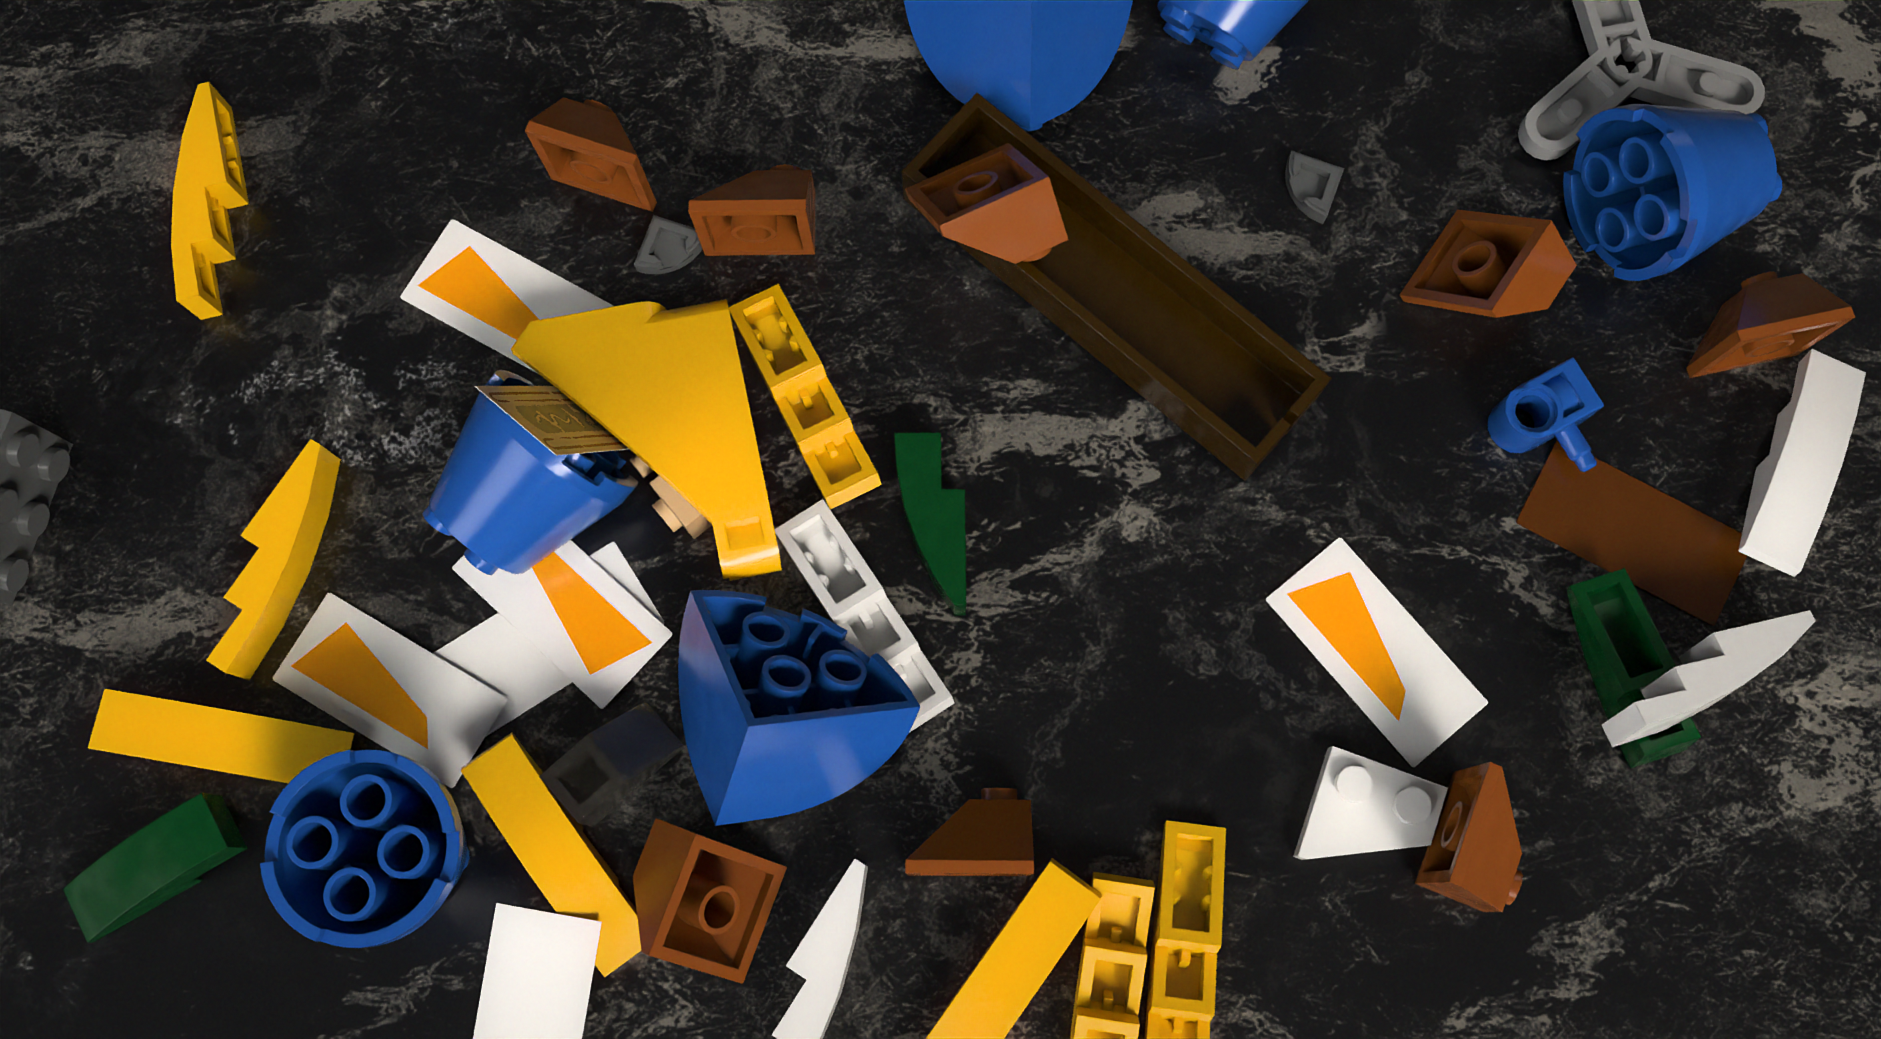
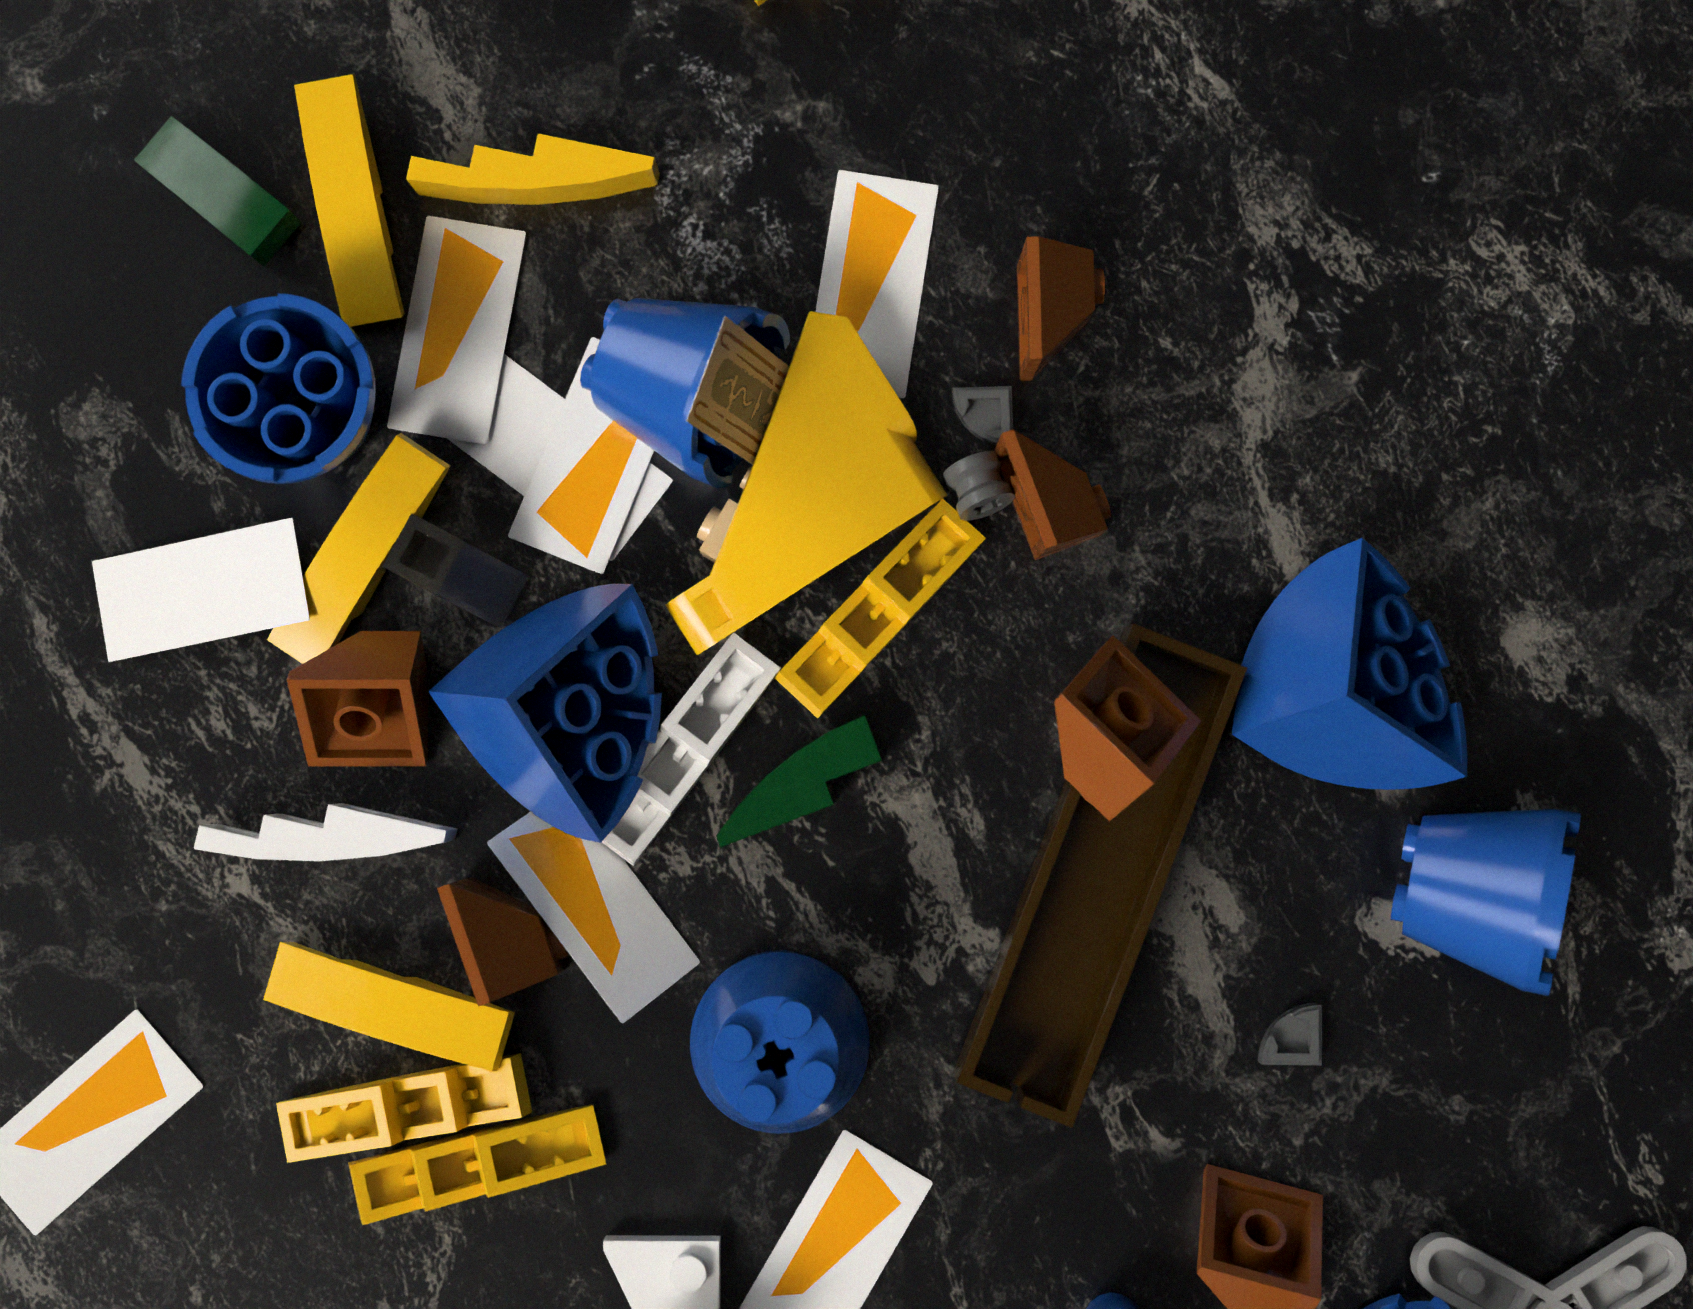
camera: 70 degrees right, 10 degrees up
(728, 269) = (978, 485): none -> dark grey wheel
(983, 750) = (596, 912): none -> white sticker
(1141, 647) = (797, 1006): none -> blue cone

